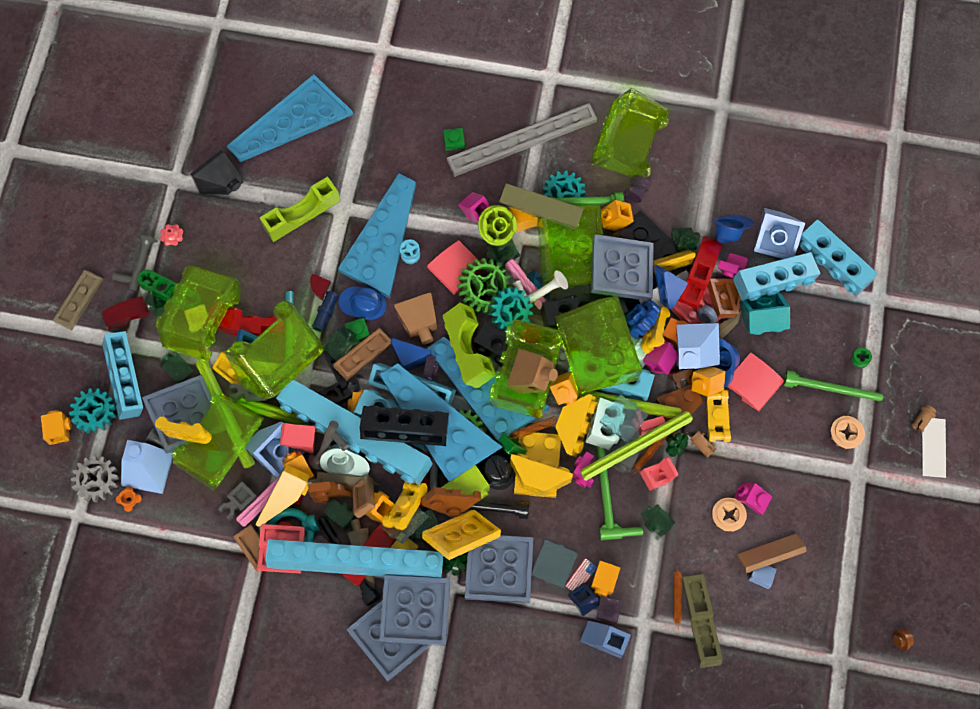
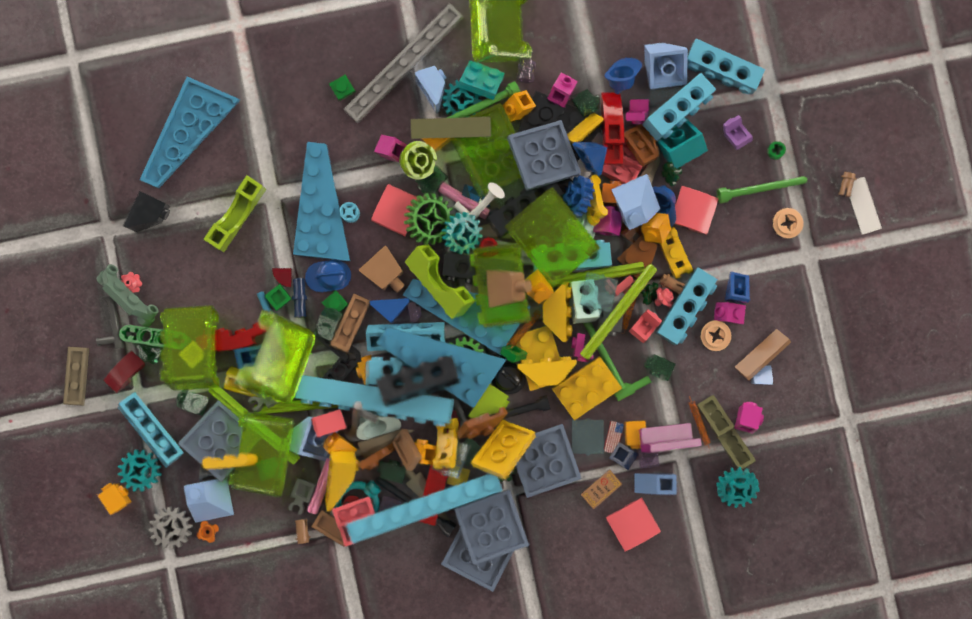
camera: 30 degrees left, 15 degrees up
(160, 244) = (125, 298): none -> sand green plate
(221, 537) = (302, 531): none -> medium nougat pin
(305, 302) = (278, 297): none -> green plate
(540, 165) = (432, 85): none -> light blue slope
(546, 623) = (601, 489): none -> medium nougat tile
(565, 674) = (633, 524): none -> coral slope
(573, 511) = (587, 388): none -> yellow plate
(590, 179) = (481, 79): none -> teal plate
(637, 596) = (667, 438): none -> panel
(665, 217) = (562, 90): none -> dark pink brick
(684, 682) = (738, 493): none -> teal gear
(690, 454) = (664, 297): none -> coral plant
(707, 314) = (633, 167): sand blue tile -> none
(732, 449) = (708, 286): none -> medium azure brick
(732, 611) = (749, 417): none -> dark pink brick
(744, 337) = (671, 173): none -> dark green plant
(770, 476) = (738, 288): none -> blue slope
(826, 324) = (736, 132): none -> medium lavender bracket
(903, 639) = (893, 382): dark orange plate -> none

